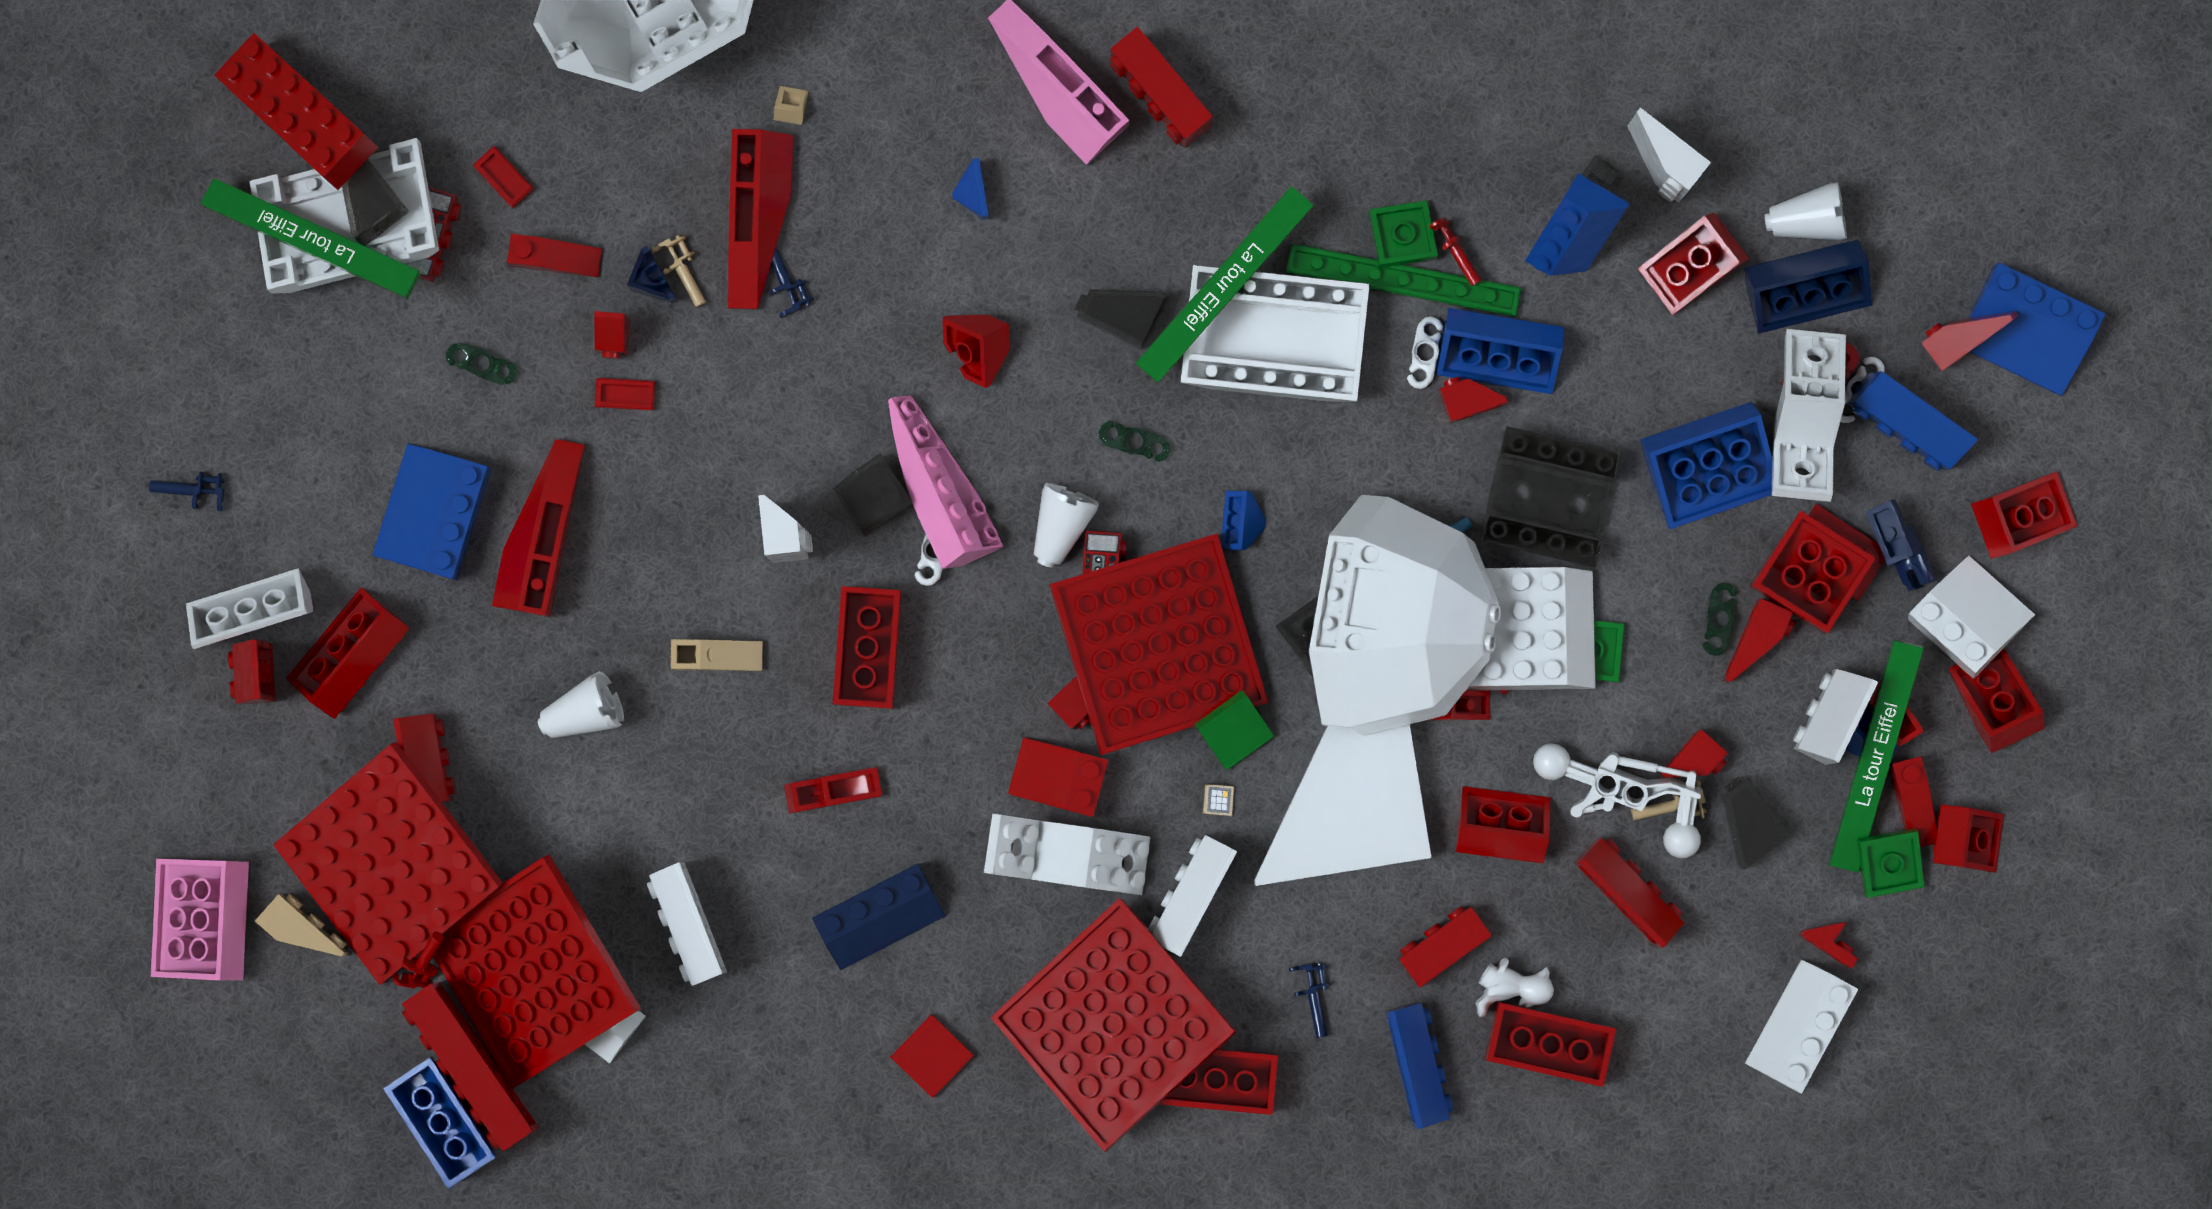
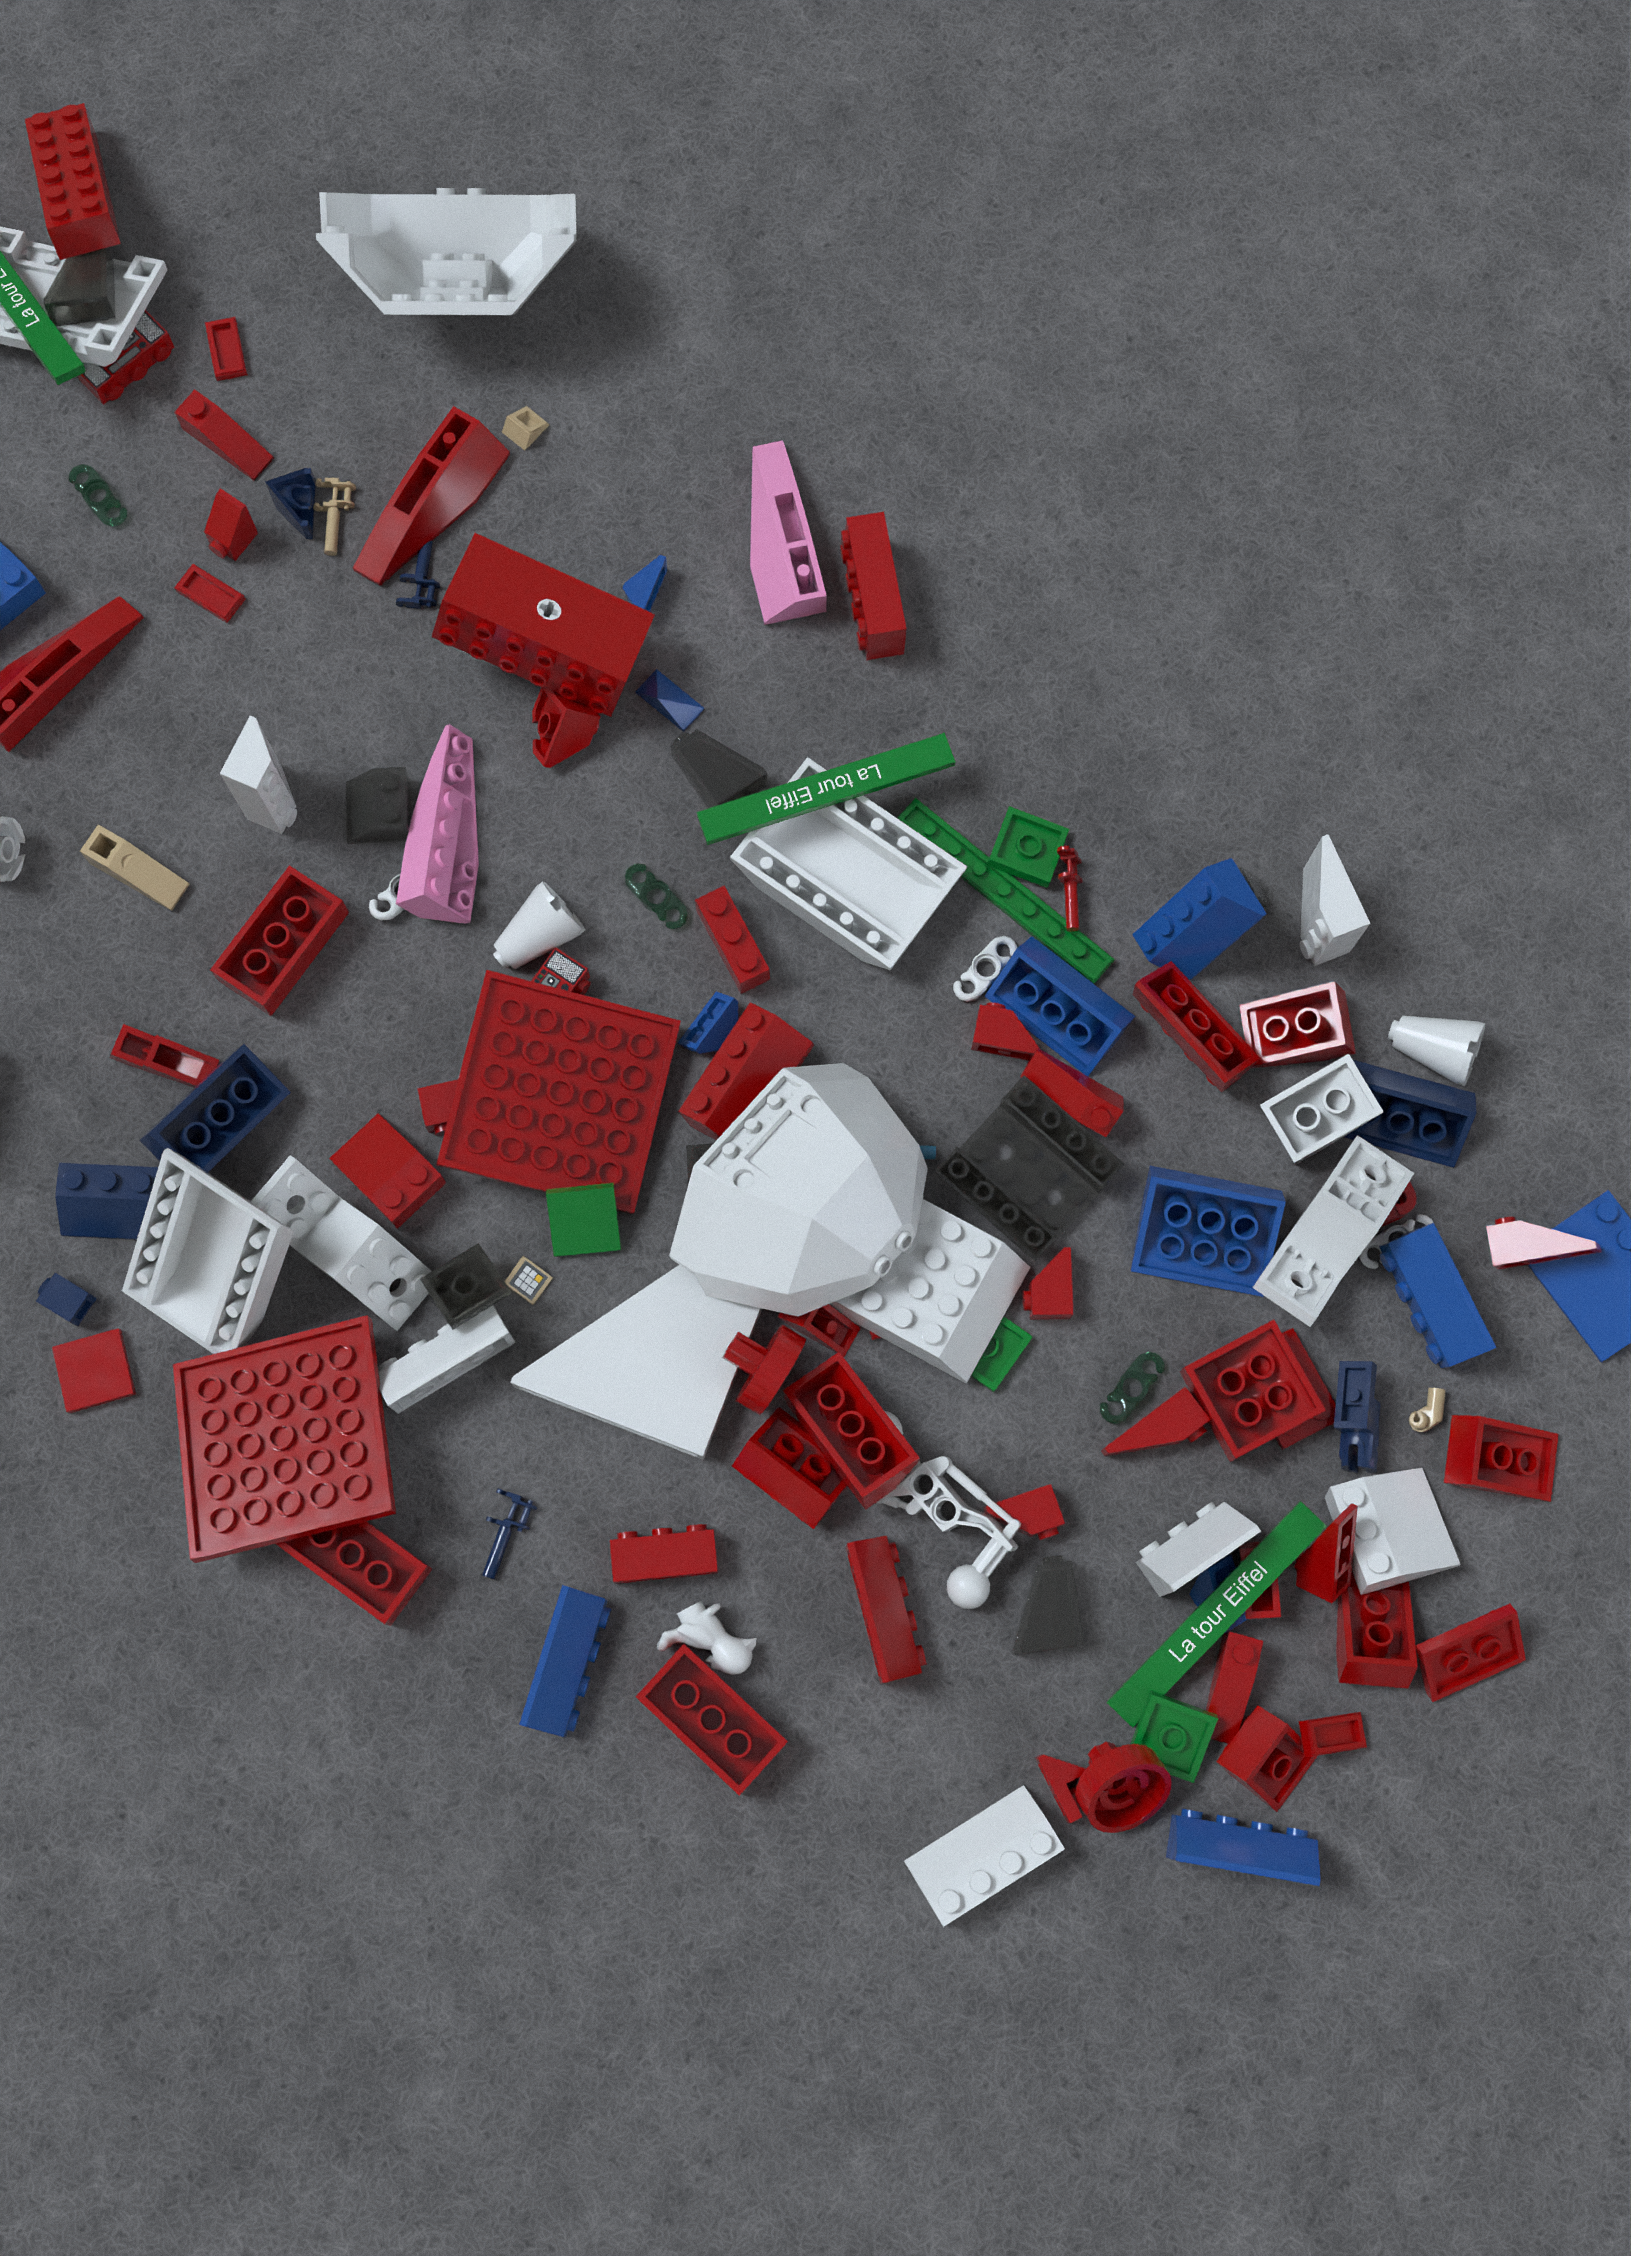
camera: 25 degrees right, 10 degrees down
(877, 1016) = (65, 1299): none -> dark blue brick
(907, 812) = (218, 1111): none -> dark blue slope
(923, 278) = (541, 625): none -> red piece
(974, 926) = (205, 1256): none -> white slope
(1048, 272) = (669, 700): none -> blue slope
(1180, 834) = (465, 1286): none -> clear smoke slope
(1217, 444) = (732, 939): none -> red brick
(1292, 547) = (742, 1069): none -> red slope
(1442, 764) = (765, 1366): none -> red piece
(1531, 774) = (851, 1430): none -> red slope
(1553, 416) = (1075, 1092): none -> red slope
(1616, 309) = (1195, 1025): none -> red slope
(1618, 579) = (1051, 1290): none -> red slope
(1667, 807) = (973, 1546): tan piece -> none
(1748, 324) = (1321, 1109): none -> white slope
(1874, 920) = (1122, 1786): none -> red piece
(1937, 672) = (1327, 1563): none -> red slope
(1954, 511) = (1430, 1414): none -> tan arm
(1986, 914) = (1244, 1848): none -> blue slope
(2006, 794) = (1332, 1734): none -> red tile
(2076, 676) = (1471, 1652): none -> red plate

